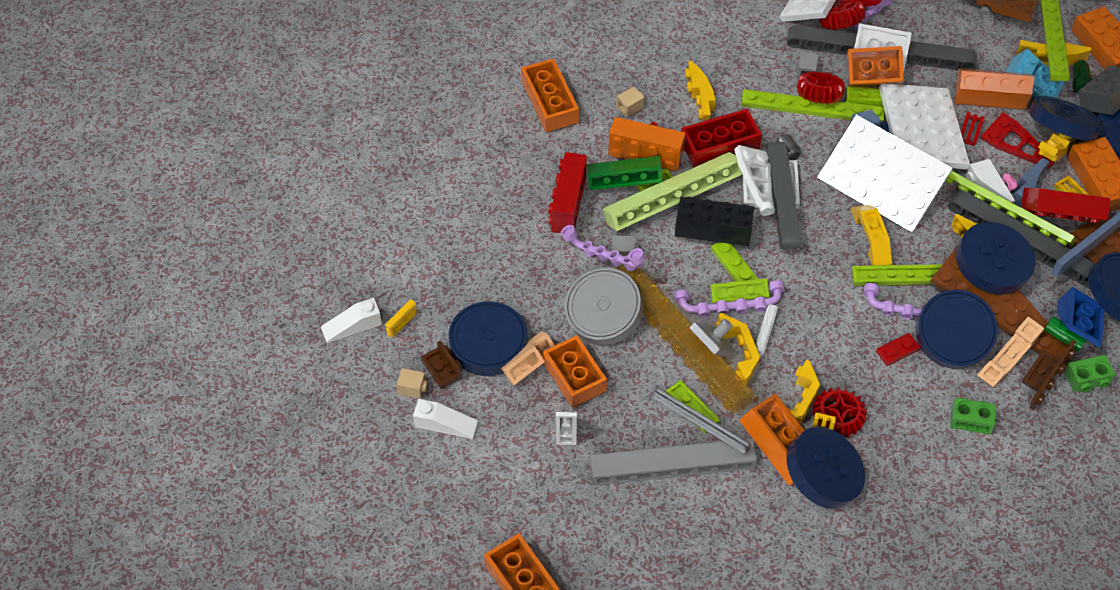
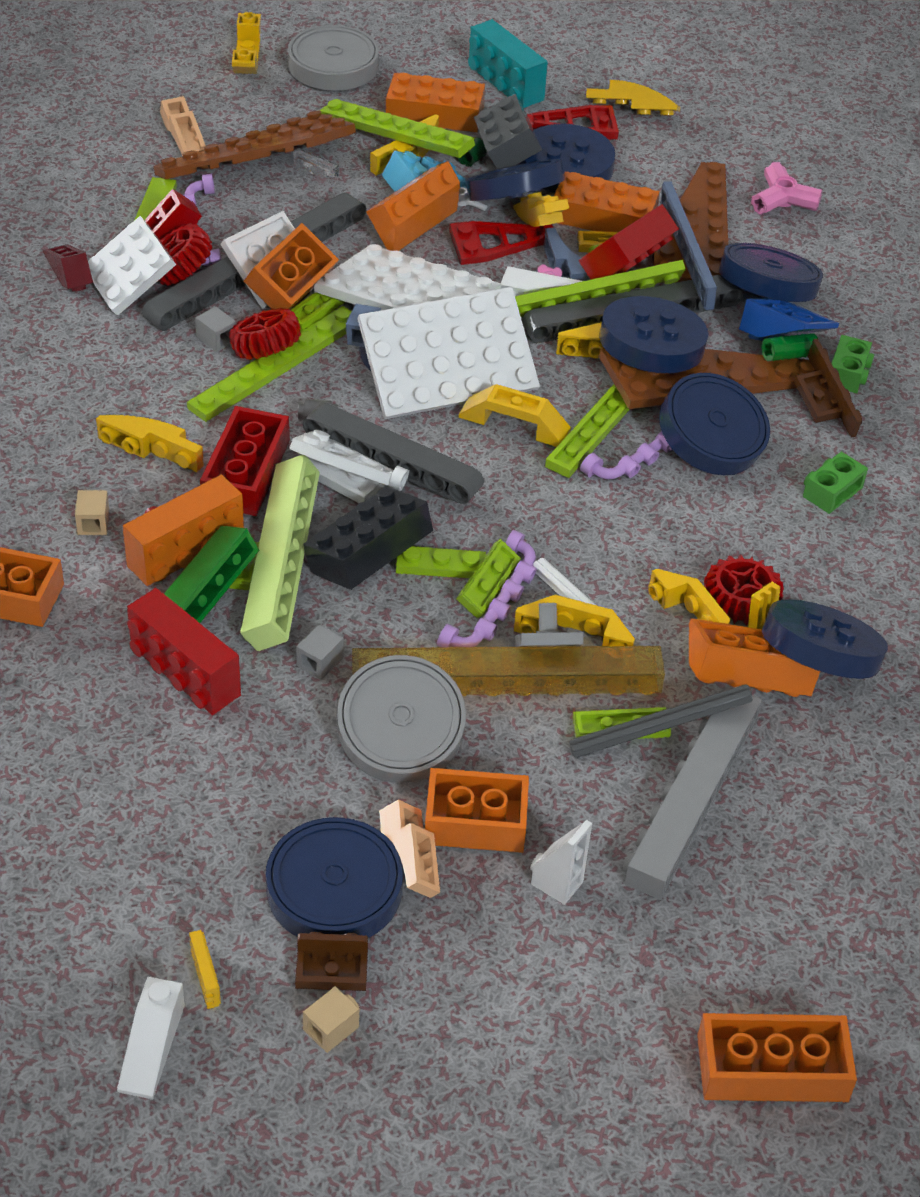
camera: 60 degrees left, 10 degrees down
(443, 419) = (423, 1015): white slope -> none
(631, 262) = (386, 622): lavender bar -> none
(898, 349) = (691, 492): red plate -> none
(974, 118) = (442, 255): red tile -> none
(1011, 353) = (772, 395): light nougat slope -> none

